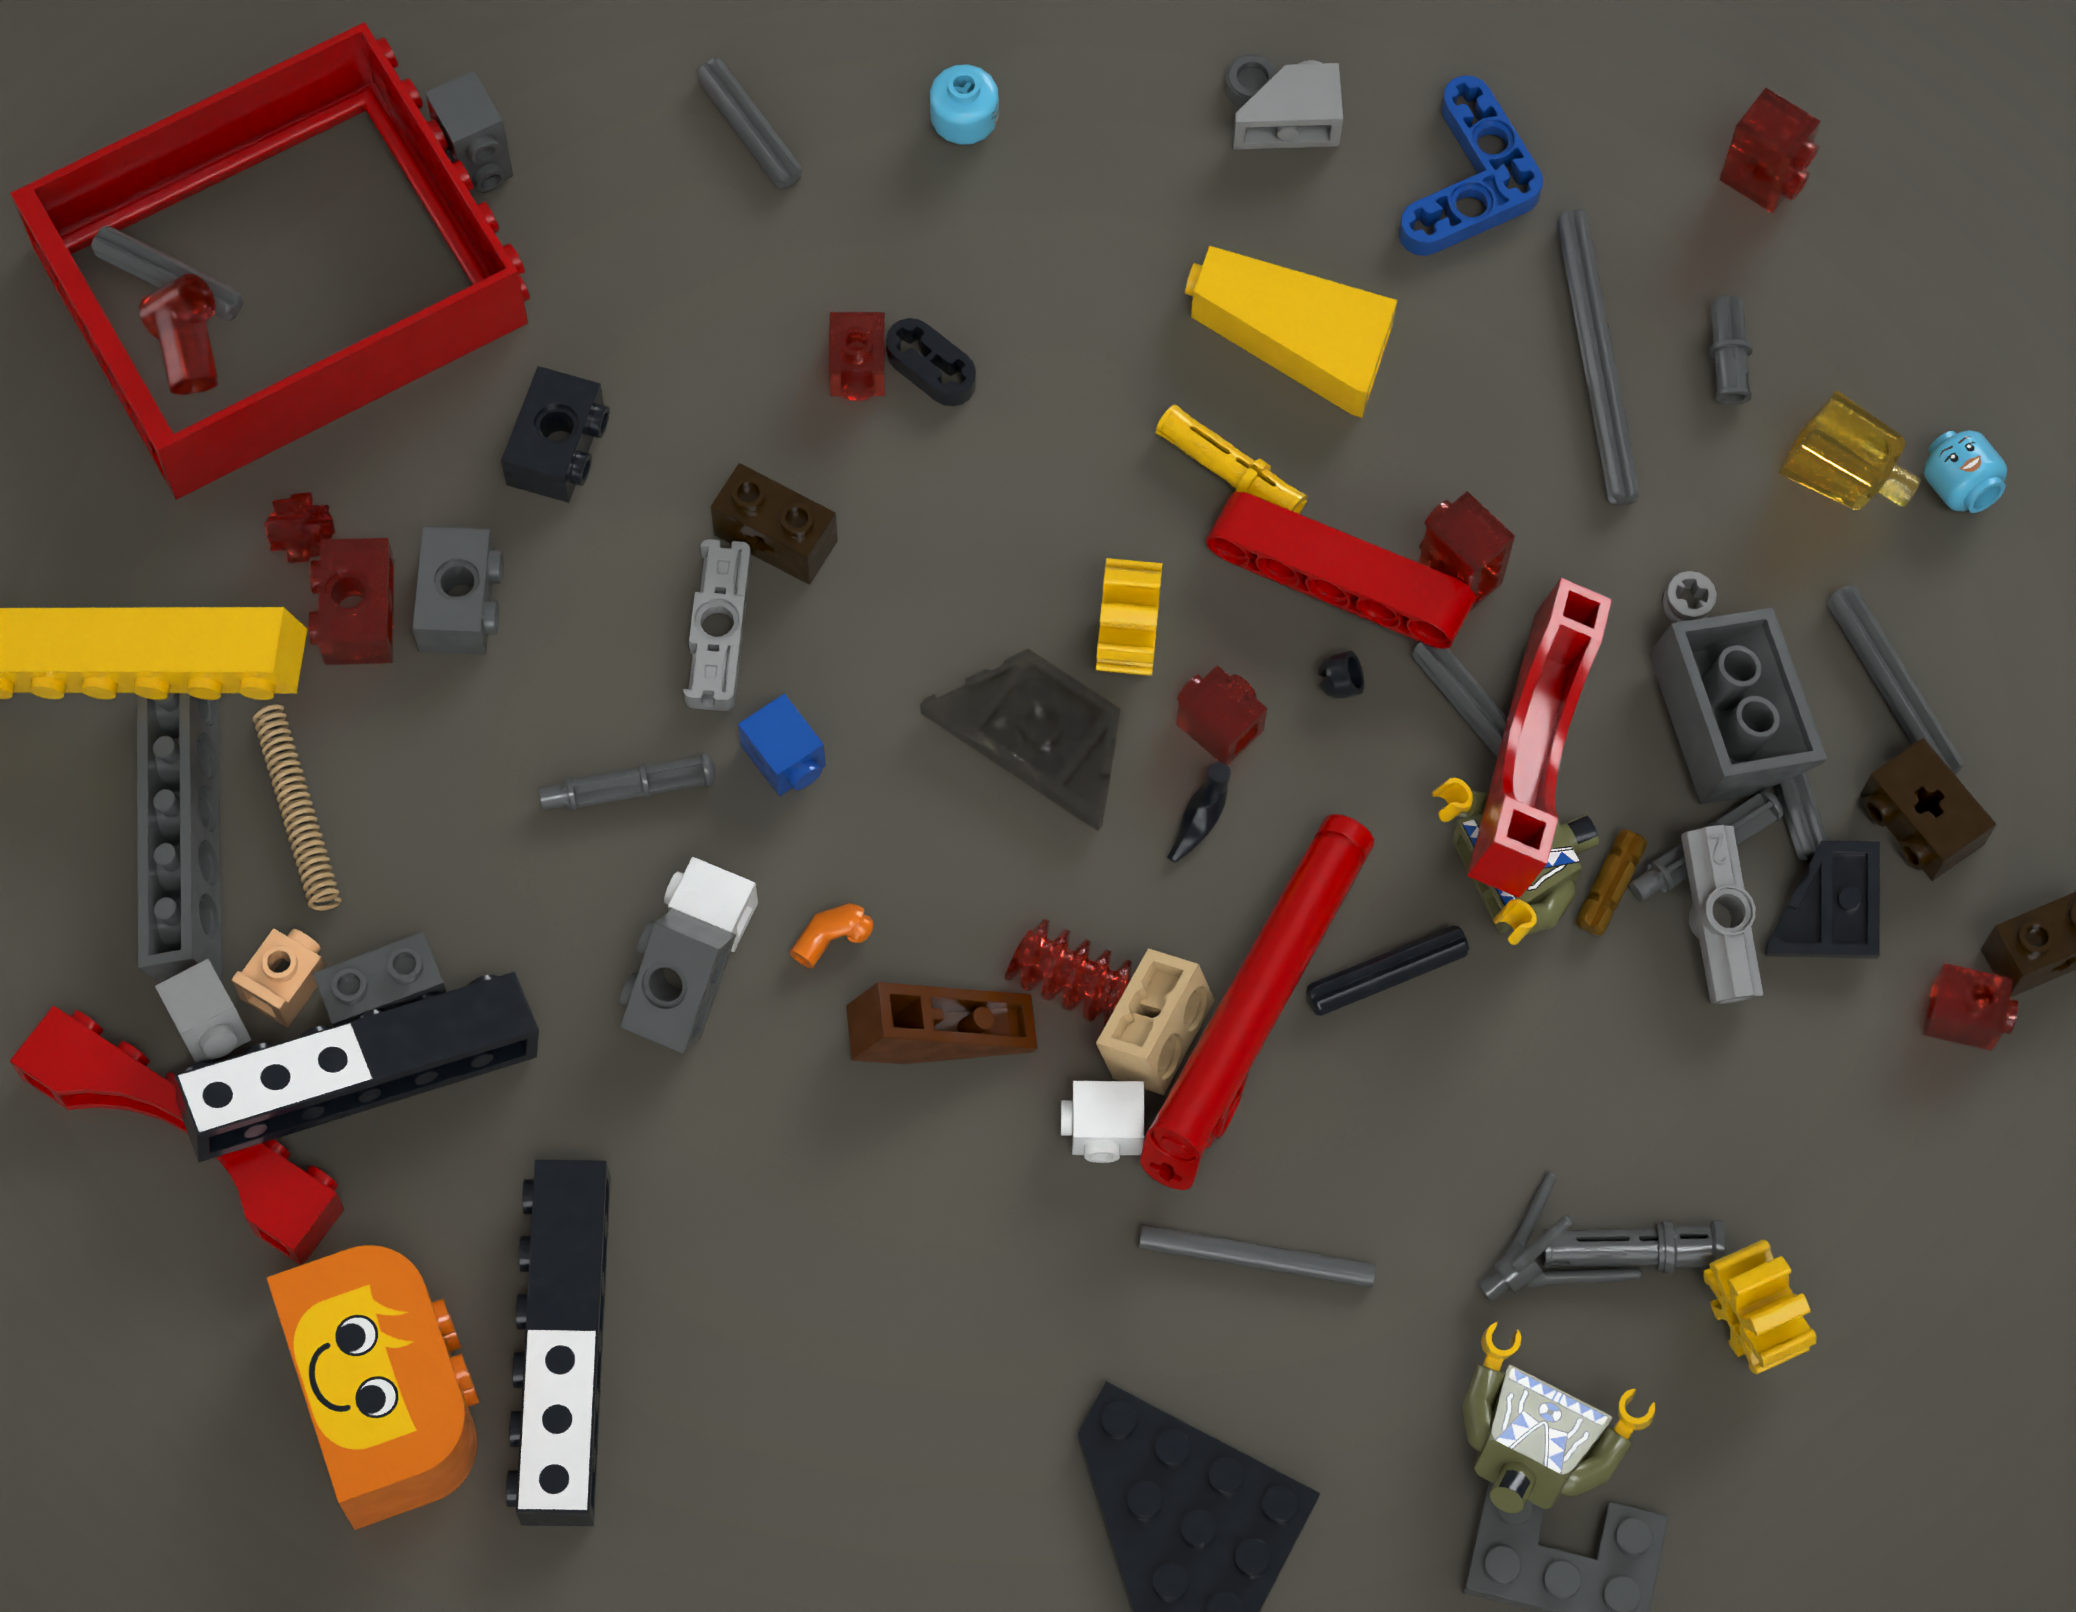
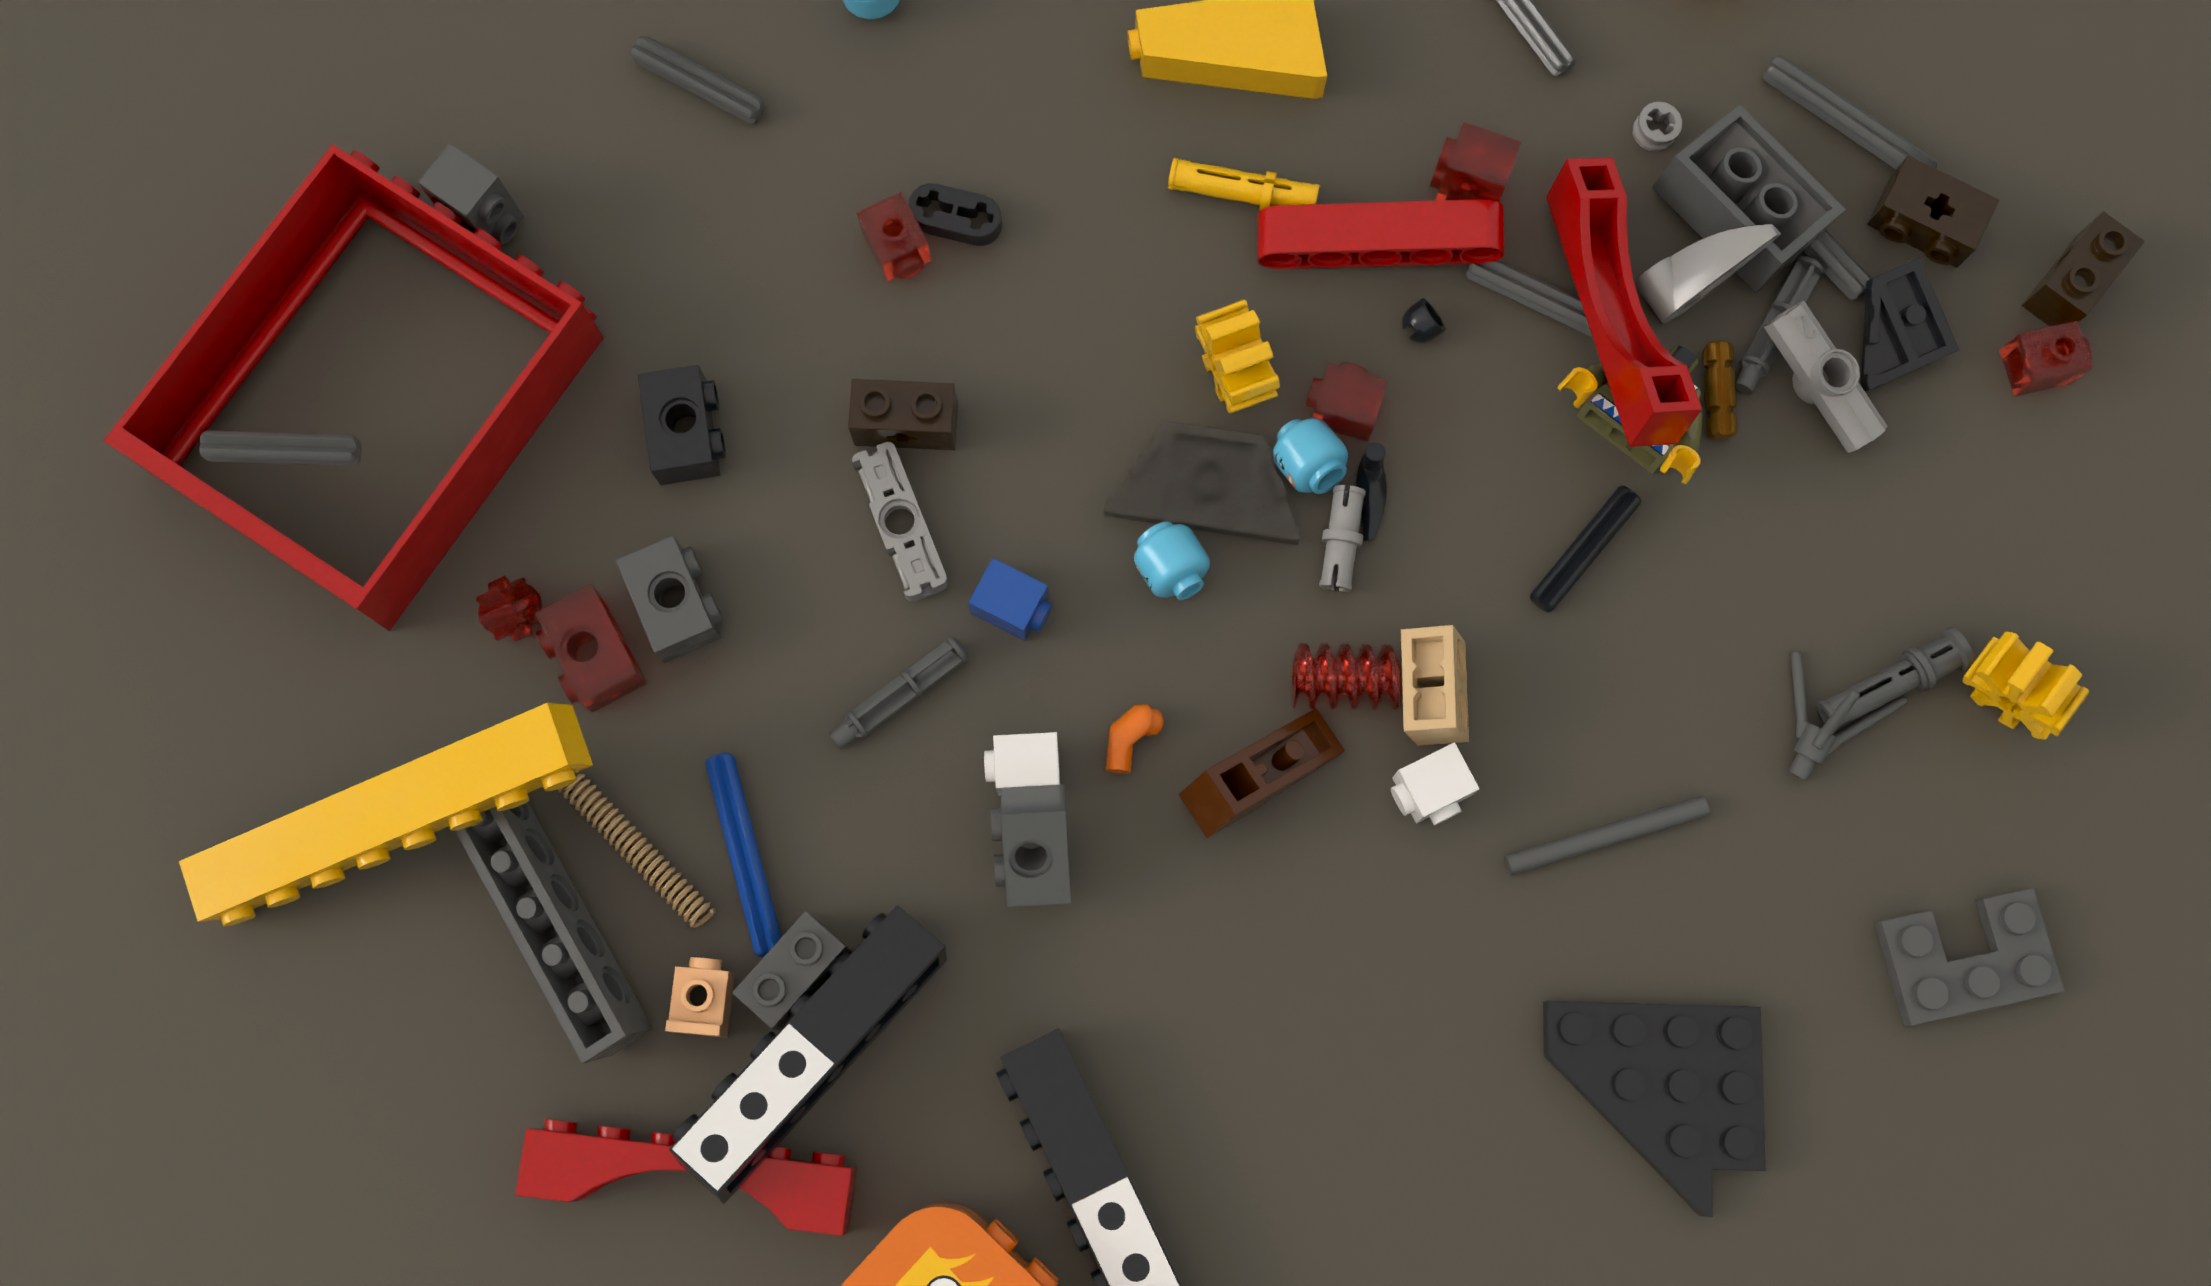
camera: 25 degrees left, 10 degrees up
(178, 319) = (313, 485): clear red piece -> none
(203, 1012) = (662, 1078): light grey slope -> none
(398, 854) = (743, 852): none -> blue axle
(962, 782) = (1171, 560): none -> medium azure head
(1144, 843) = (1342, 538): none -> light grey pin
(1154, 748) = (1310, 455): none -> medium azure head
(1219, 1066) = (1509, 709): red piece -> none
(1537, 1437) = (1911, 878): olive torso -> none
(1636, 753) = (1698, 269): none -> light grey piece

